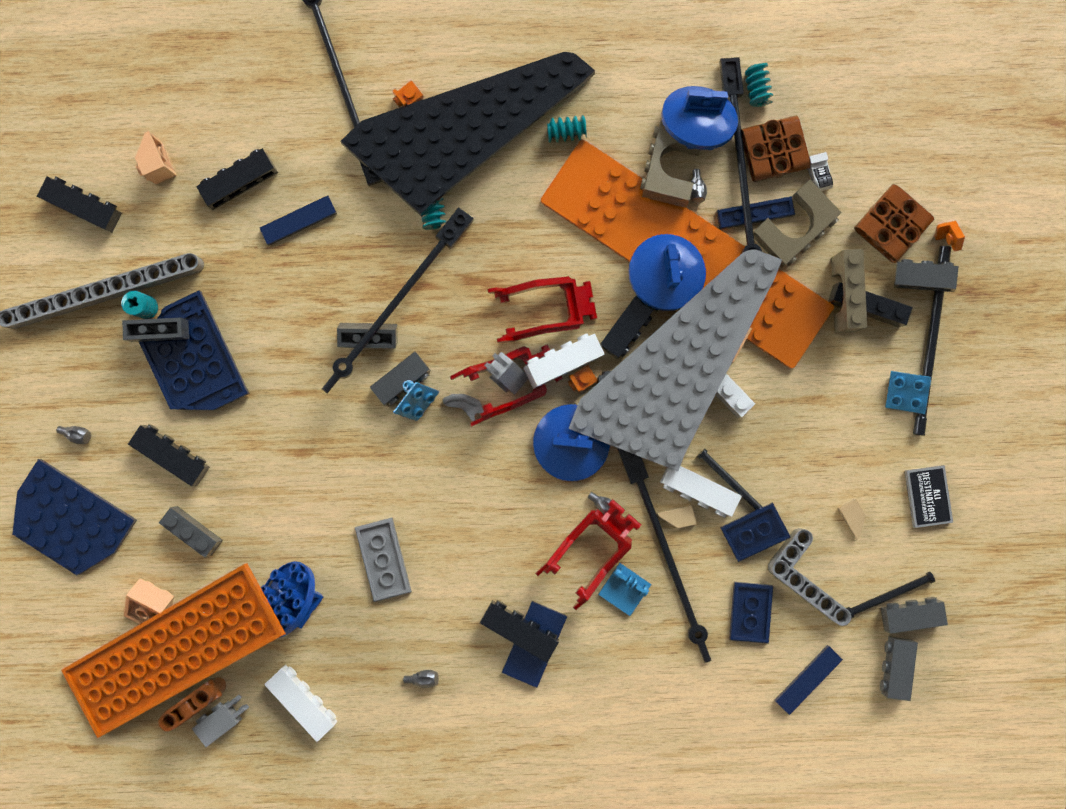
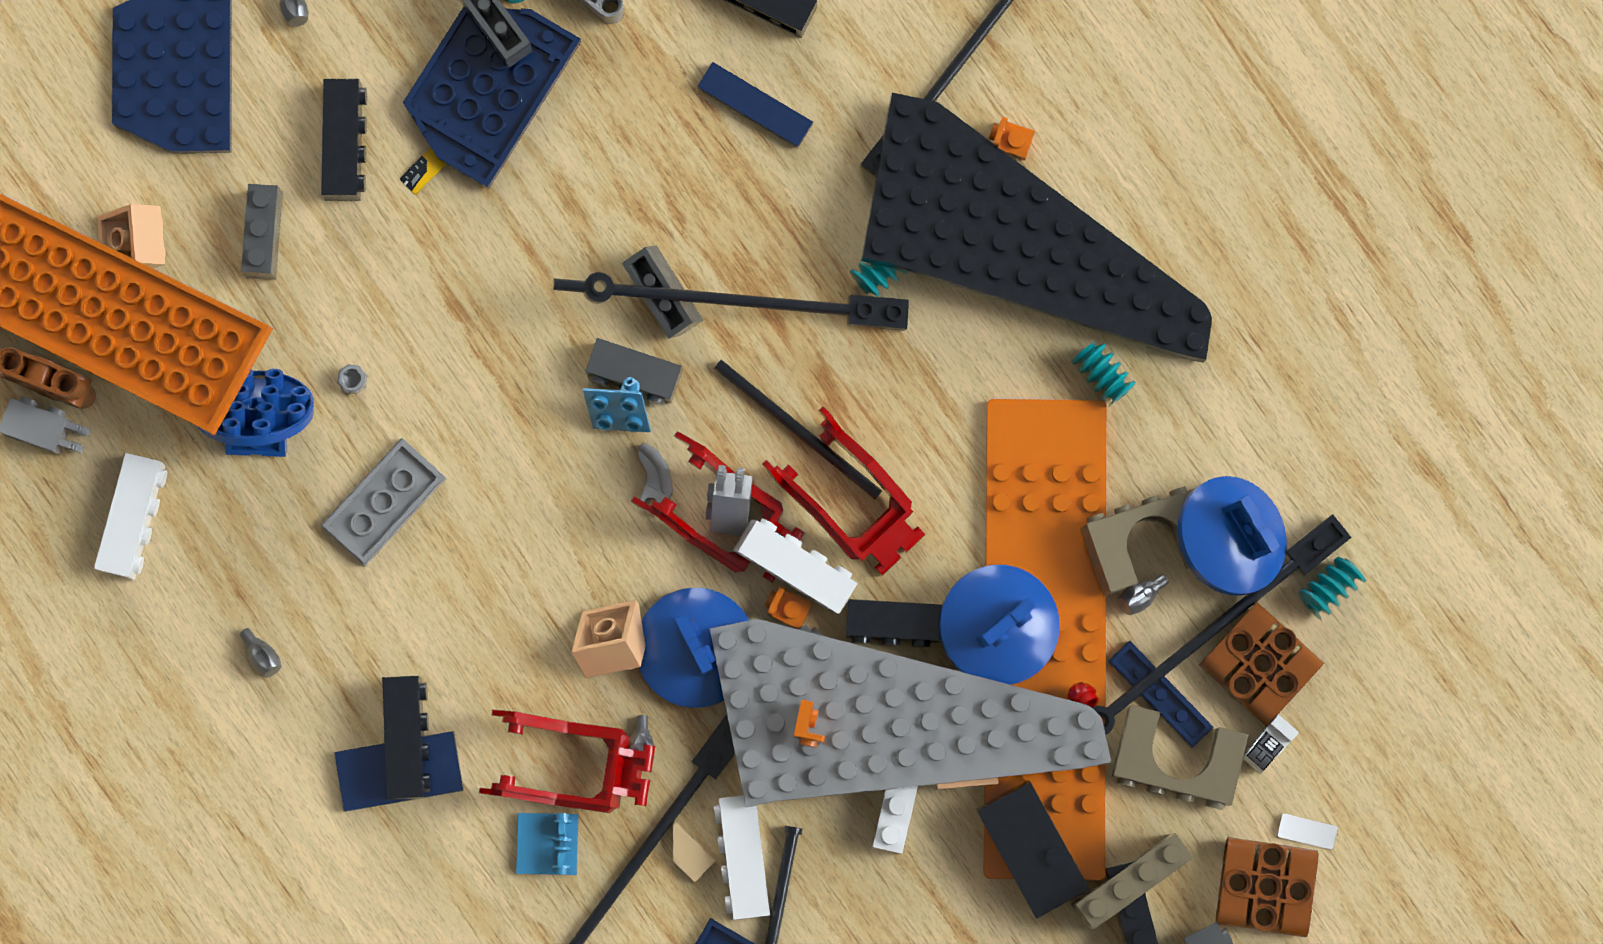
camera: 55 degrees right, 5 degrees down
(216, 423) = (422, 171): none -> sticker
(305, 533) = (352, 379): none -> light grey tile
(488, 312) = (798, 429): none -> black piece
(538, 485) = (609, 639): none -> light nougat slope
(654, 408) = (807, 719): none -> orange bracket
(732, 252) = (1083, 693): none -> red plate
(797, 332) = (1032, 849): none -> black brick
(877, 183) = (1307, 831): none -> white sticker

